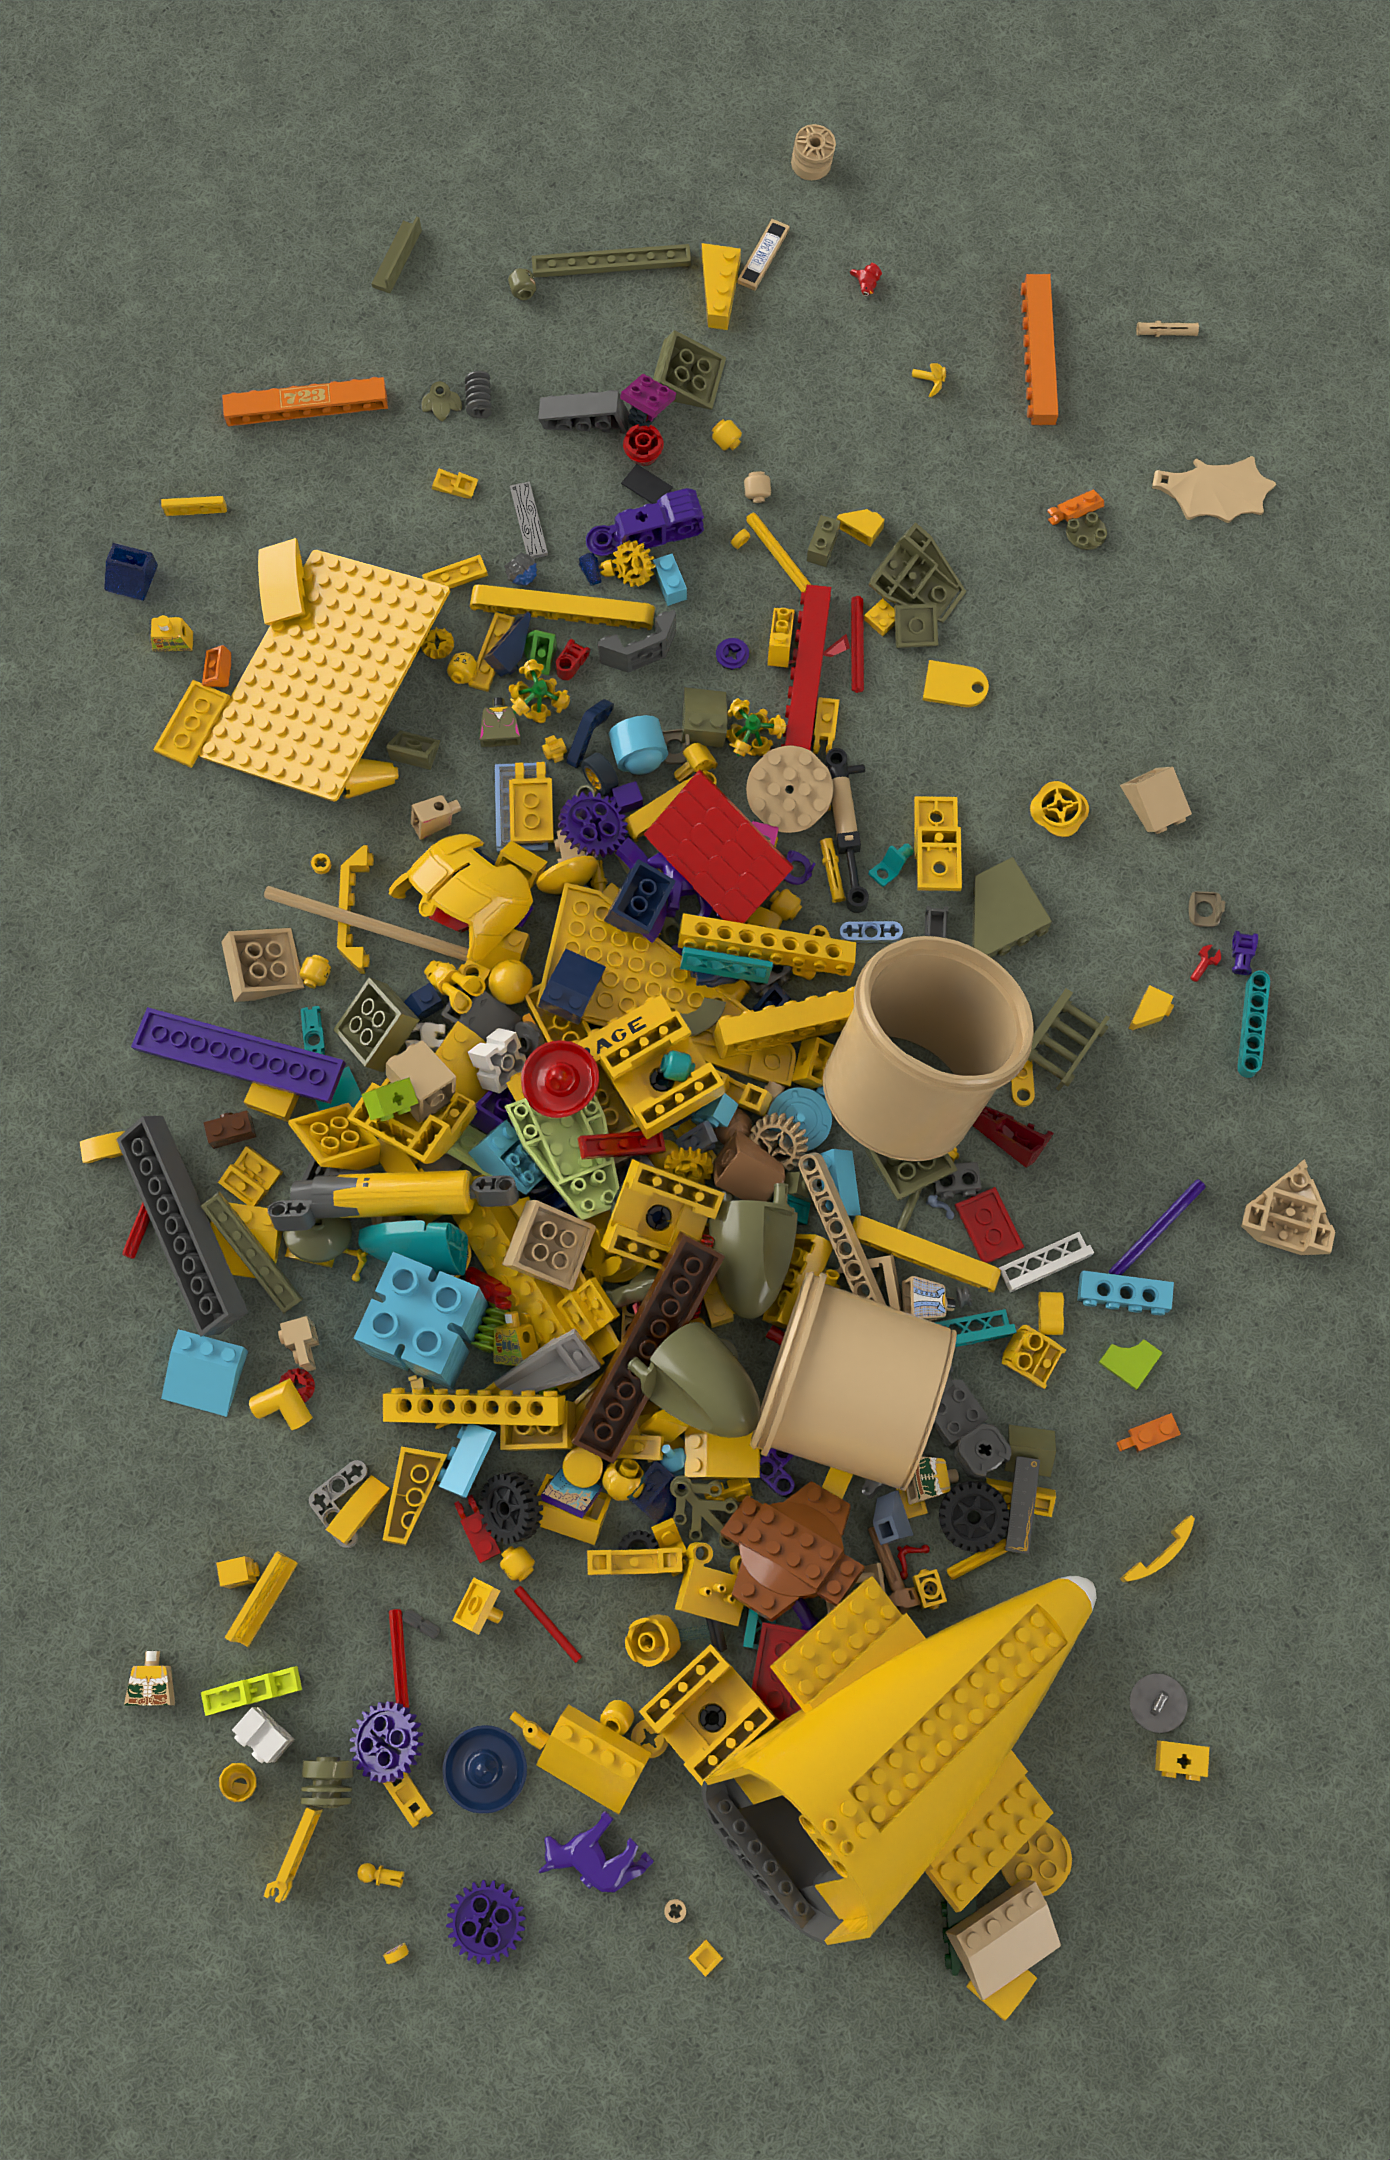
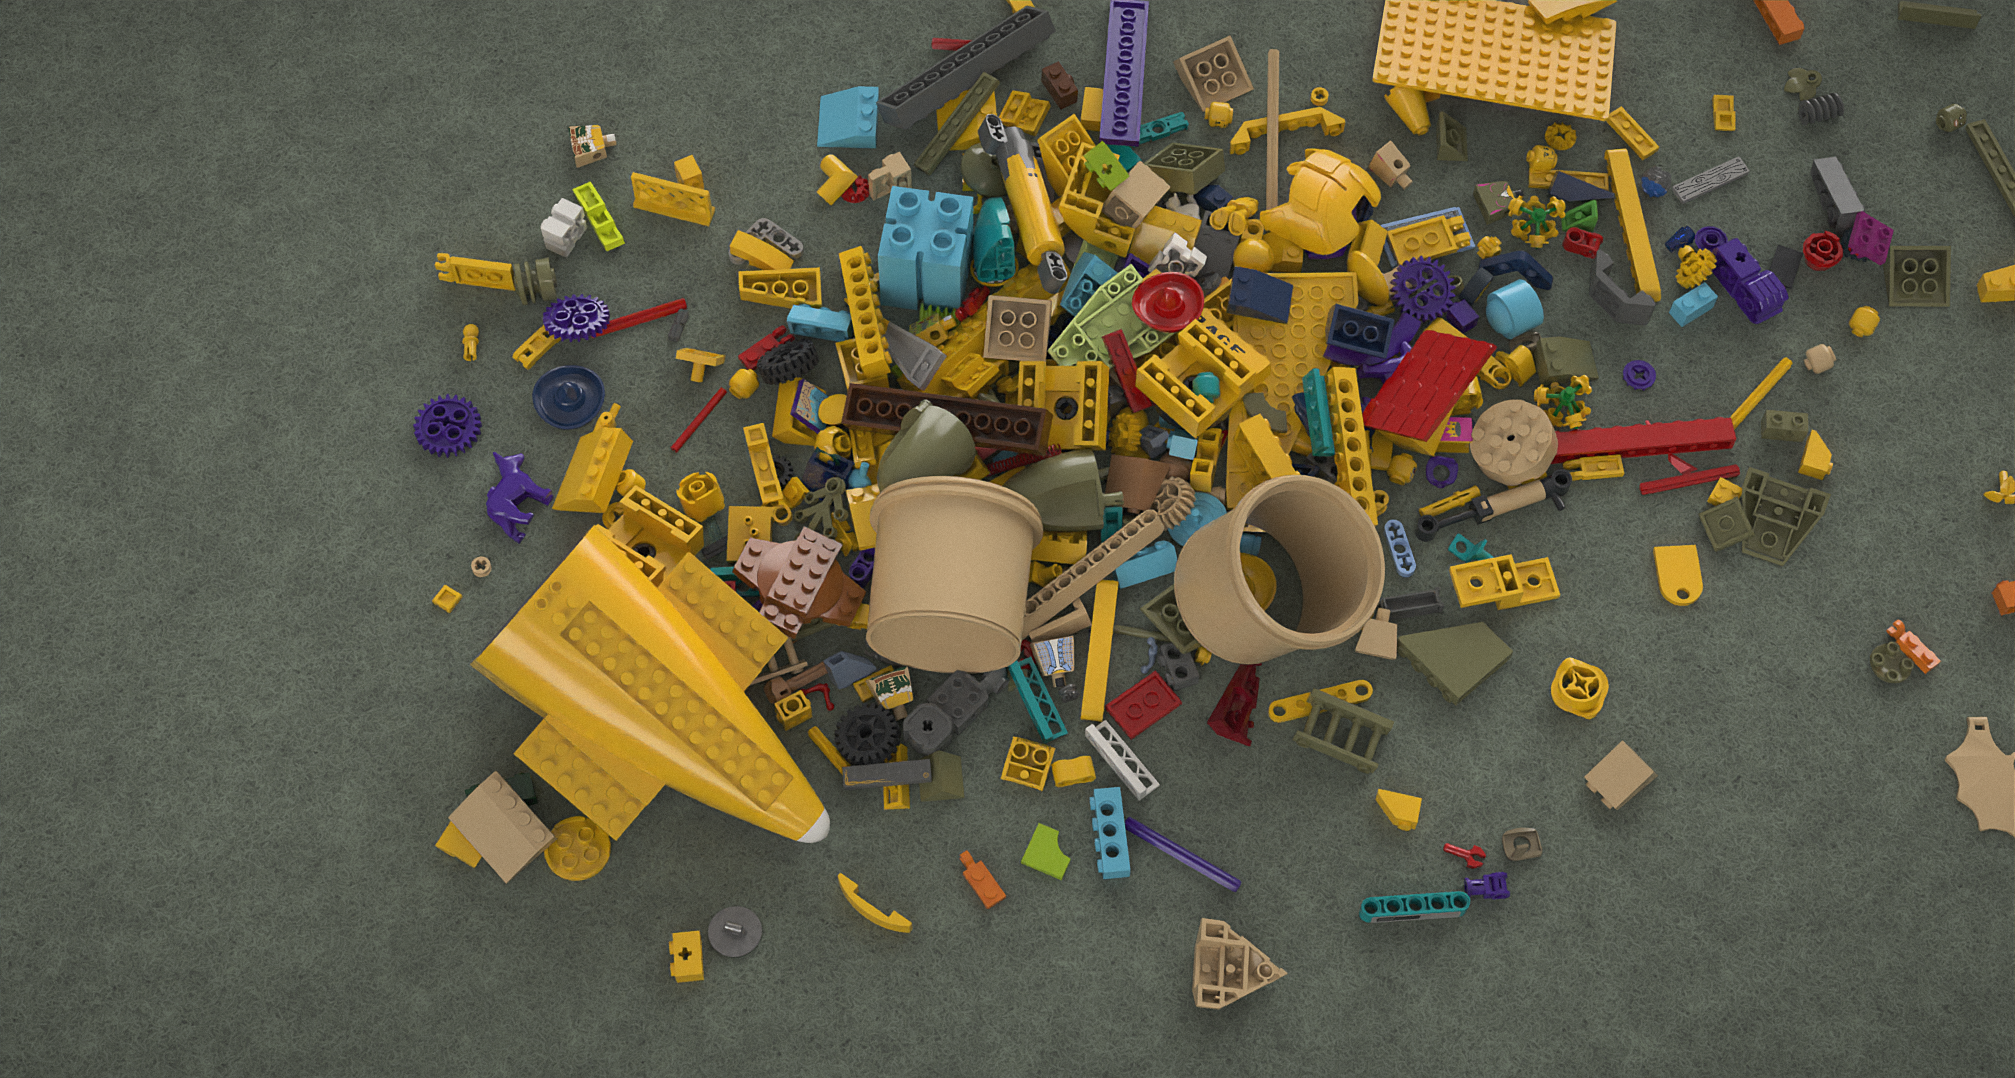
camera: 75 degrees right, 10 degrees down
(237, 1791) = (521, 216): yellow hair -> none
(396, 1954) = (410, 365): yellow tile -> none
(740, 538) = (1760, 356): yellow tile -> none
(780, 637) = (1669, 409): yellow slope -> none

